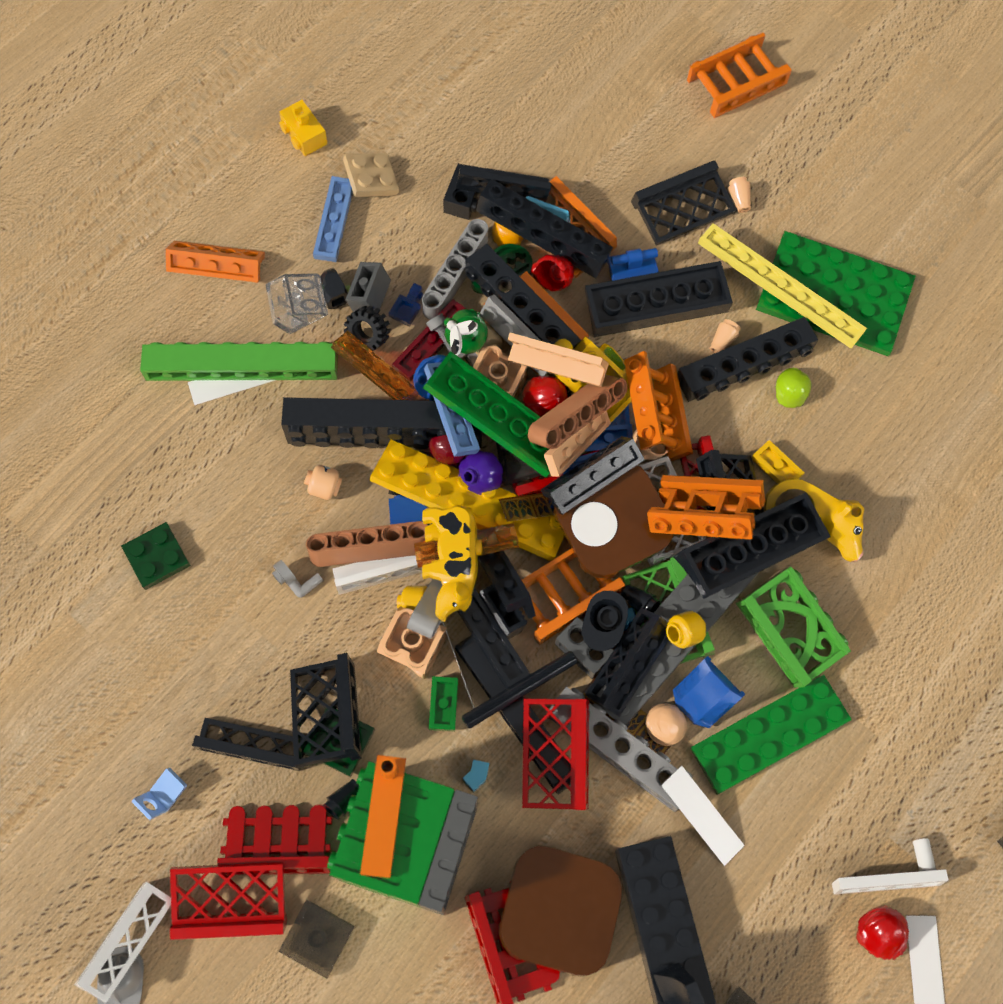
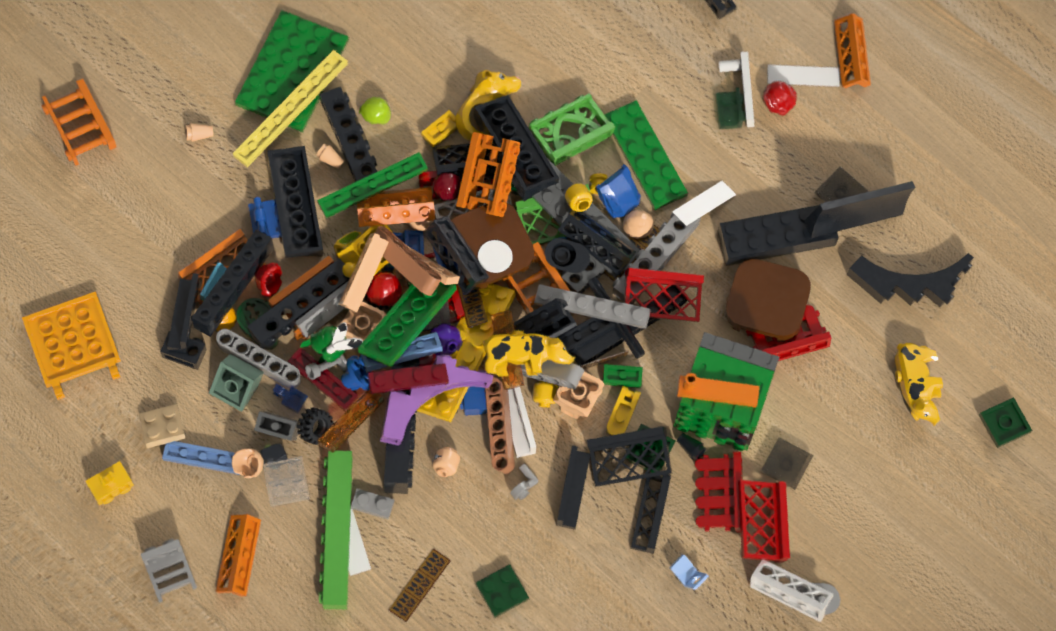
camera: 90 degrees left, 0 degrees up
(171, 460) = (419, 585): none -> sticker
(215, 186) = (163, 557): none -> light grey plate
(271, 403) = (372, 504): none -> light grey plate
(286, 639) = (573, 489): none -> black fence
(321, 257) = (247, 462): none -> light nougat hair
(374, 409) = (402, 406): none -> medium lavender arch
(391, 704) = (622, 411): none -> yellow plate
(408, 409) = (408, 378): none -> dark red plate
(426, 246) = (235, 382): none -> sand green slope
(470, 84) = (71, 341): none -> light orange plate
(477, 775) = (674, 354): medium azure piece -> none
(531, 658) = (595, 306): none -> light grey plate
(639, 598) = (548, 232): black cone -> none
(671, 188) = (188, 182): black fence -> none
(685, 378) = (372, 185): none -> green plate
(693, 464) = (447, 186): none -> dark red piece
(724, 665) = (596, 179): none -> yellow wheel
(855, 855) = (730, 109): none -> clear green bracket

